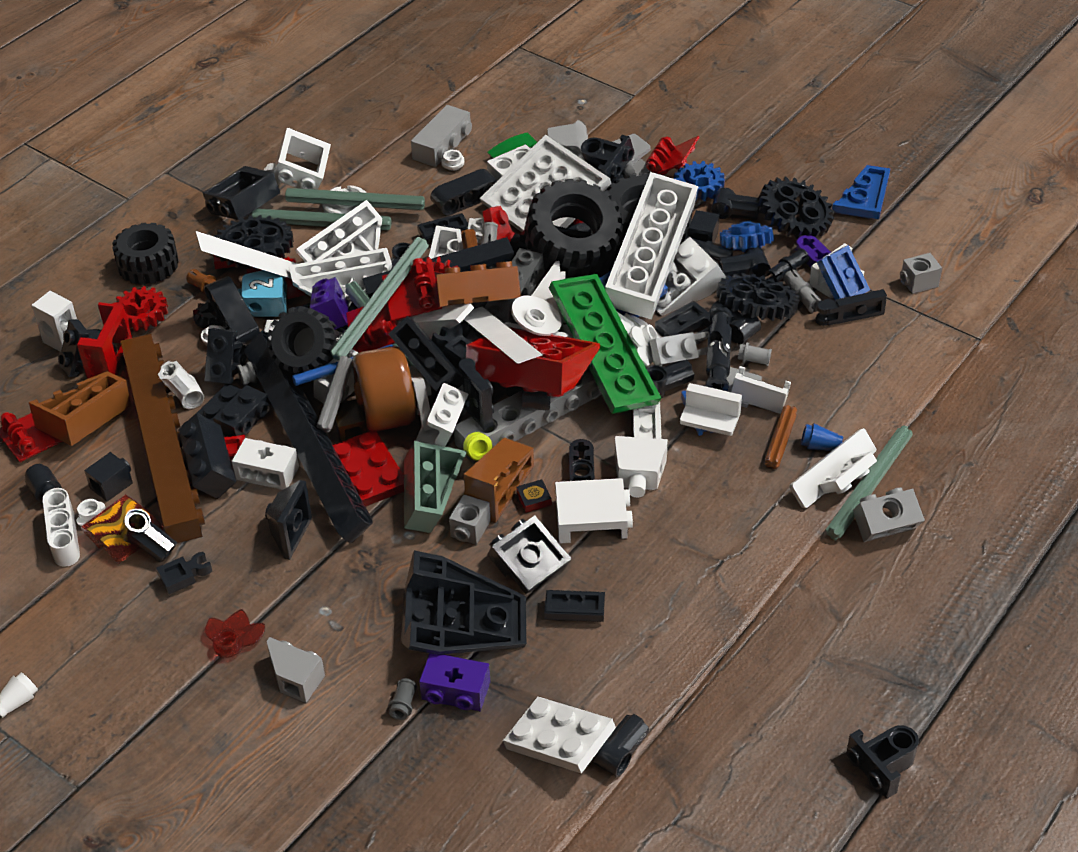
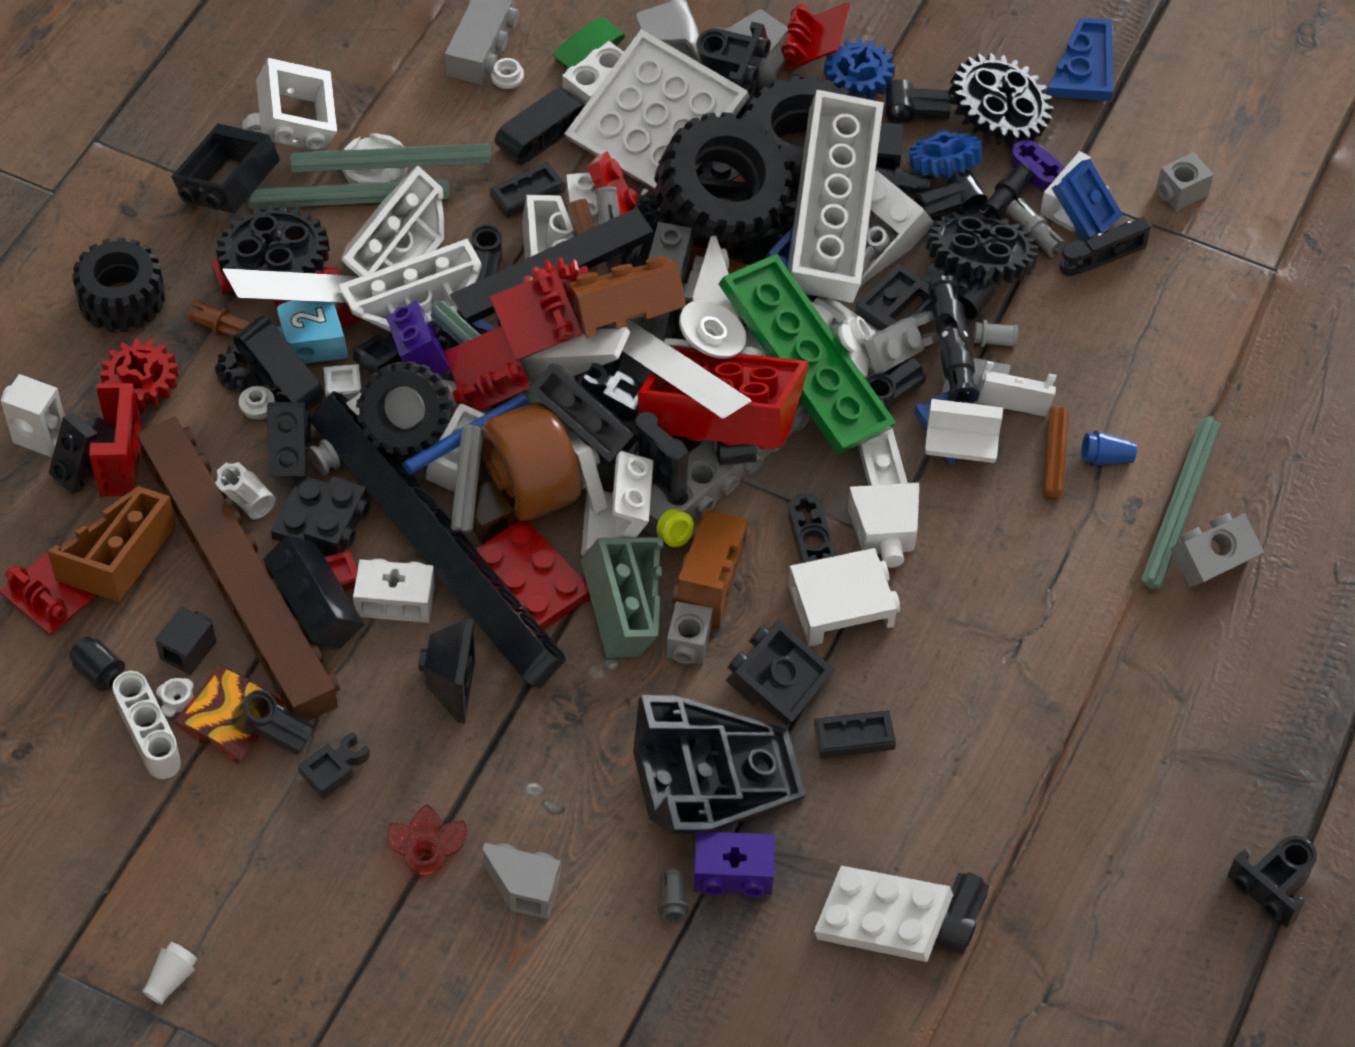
camera: 15 degrees left, 10 degrees up
(378, 299) = (496, 333): sand green axle -> none
(533, 495) = (760, 584): tile -> none
(836, 469) = (1139, 492): white bracket -> none

